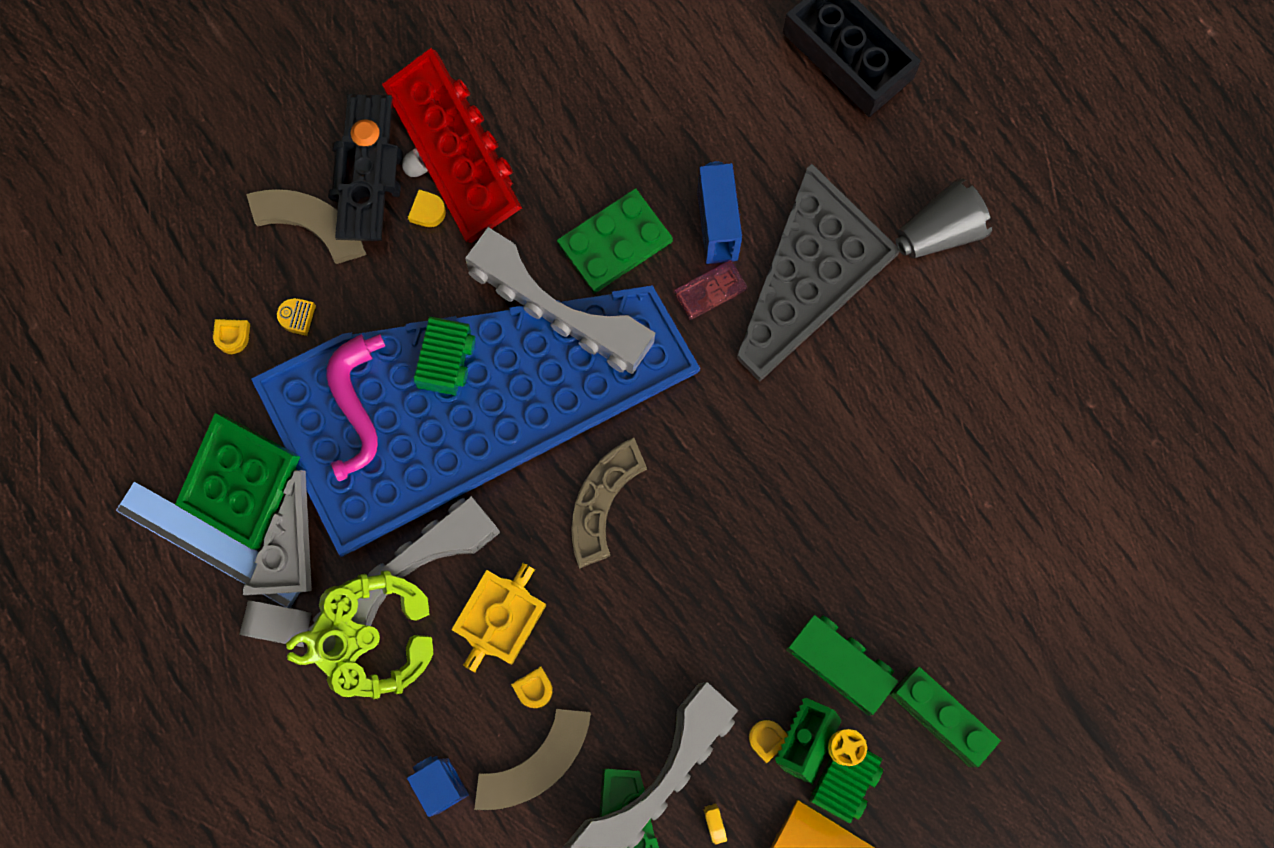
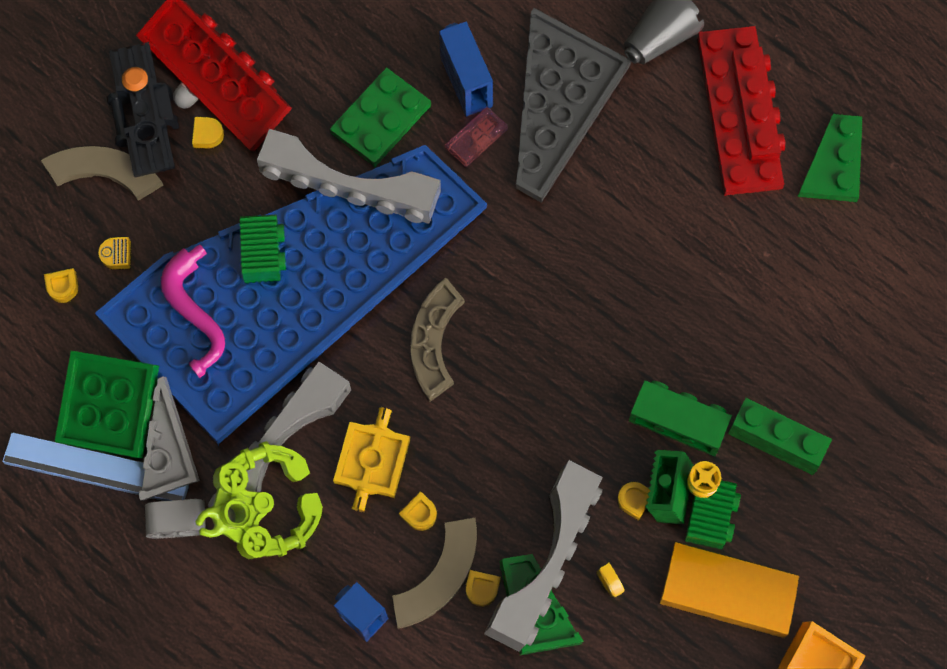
camera: 15 degrees left, 5 degrees down
(576, 791) = (482, 588): none -> yellow tile
(1006, 337) = (742, 110): none -> red plate
(1094, 424) = (837, 162): none -> green wing

